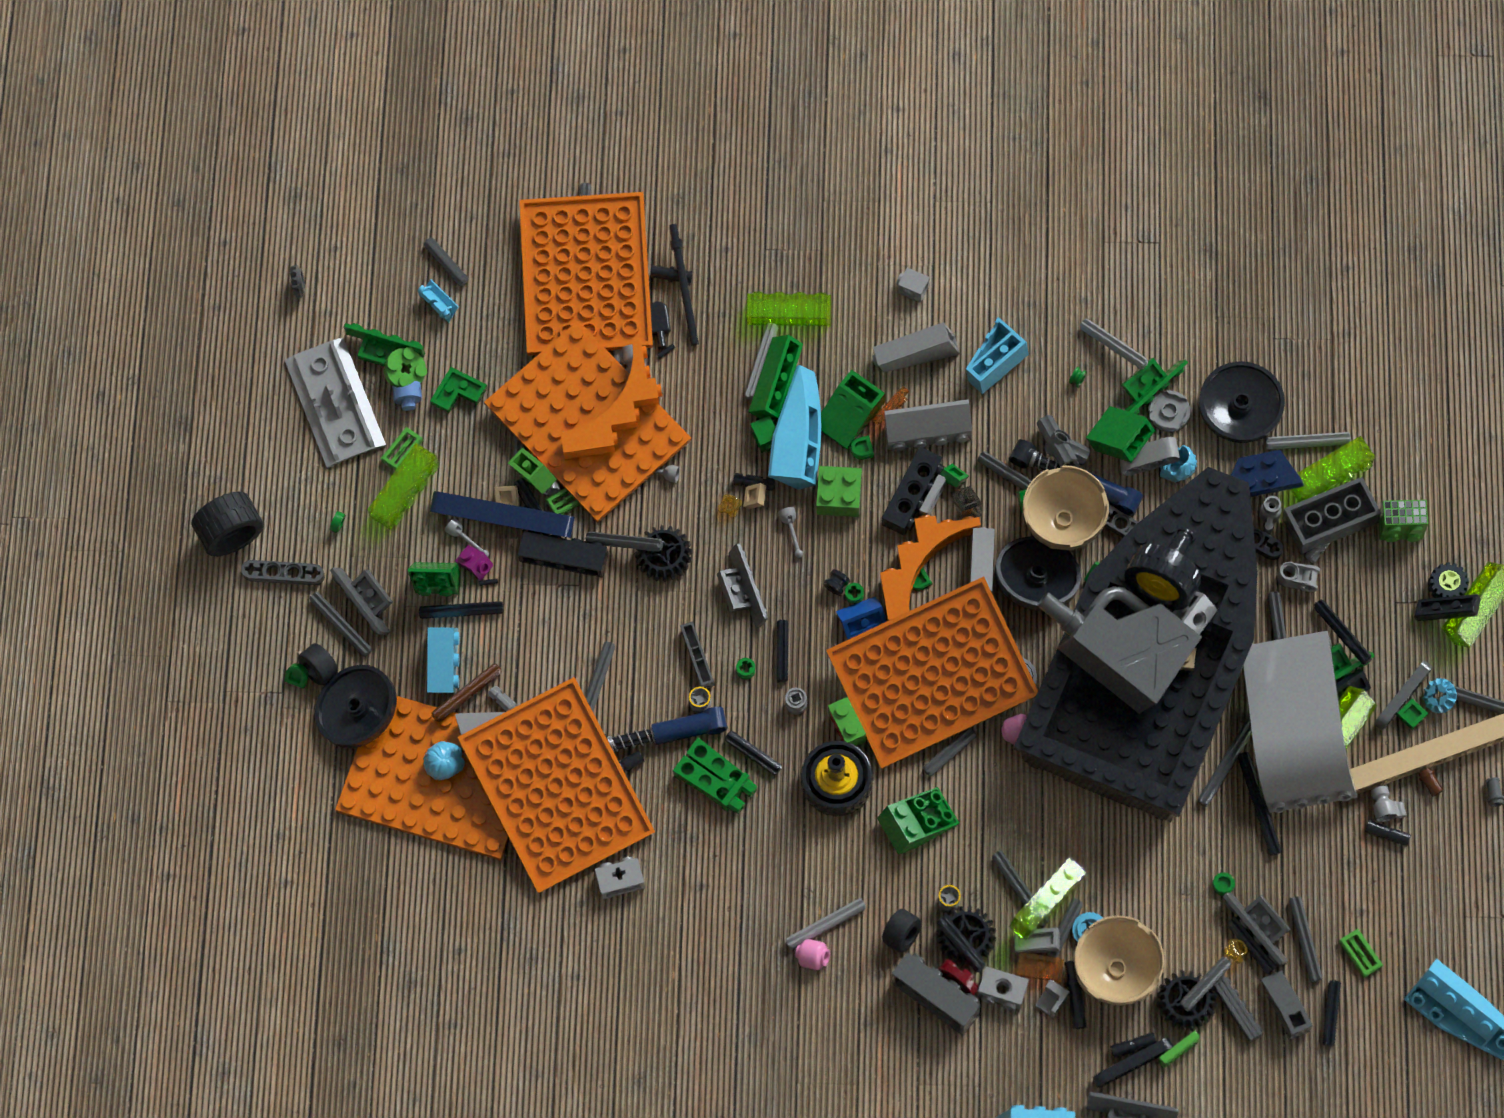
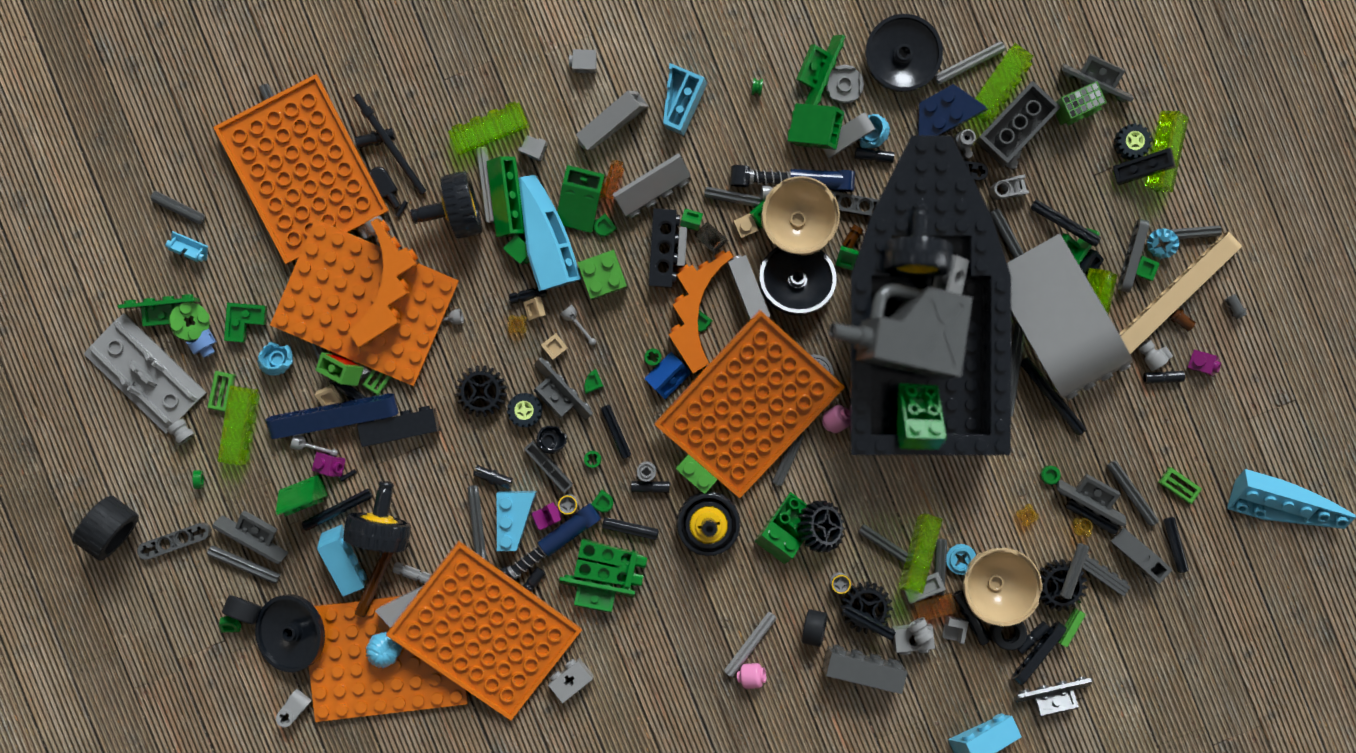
camera: 30 degrees left, 20 degrees up
(297, 281) = (58, 281): dark grey gear -> none
(322, 784) = (294, 707): none -> light grey piece
(343, 469) = (180, 431): none -> light grey wheel
(471, 438) = (275, 359): none -> medium azure hair
(496, 636) = (378, 530): none -> black wheel
(625, 541) = (444, 397): dark grey axle -> none
(635, 642) = (493, 477): none -> black pin
(637, 687) = (512, 516): none -> medium azure wedge
(672, 703) = (546, 516): none -> magenta bracket
(686, 801) = (594, 595): none -> green bracket
(698, 582) = (517, 410): none -> black wheel
(712, 629) = (551, 439): none -> black hair
(725, 363) = (457, 205): none -> black wheel
(736, 715) = (603, 501): none -> green tile
(758, 541) = (554, 346): none -> tan plate
(781, 593) = (593, 382): none -> green tile
(791, 719) = (654, 486): none -> black piece
(825, 346) = (533, 148): none -> light grey panel
(836, 582) = (634, 355): black wheel -> none
(960, 827) = (821, 526): none -> black gear
(962, 978) = (884, 651): dark red tile -> none
(1007, 505) = (745, 226): none -> tan plate
(1013, 973) = (920, 630): none -> light grey wheel
(1060, 444) = (769, 157): dark grey piece -> none
(1099, 734) = (920, 417): none -> green slope
(1113, 343) = (775, 44): light grey axle -> none
(1117, 1014) = (1009, 644): none -> black tyre
(1163, 485) = (878, 155): none -> black piece
(1181, 908) = (1033, 516): none -> clear yellow plate
(1438, 836) = (1204, 363): none -> magenta bracket
(1441, 504) = (1103, 72): none -> dark grey bracket

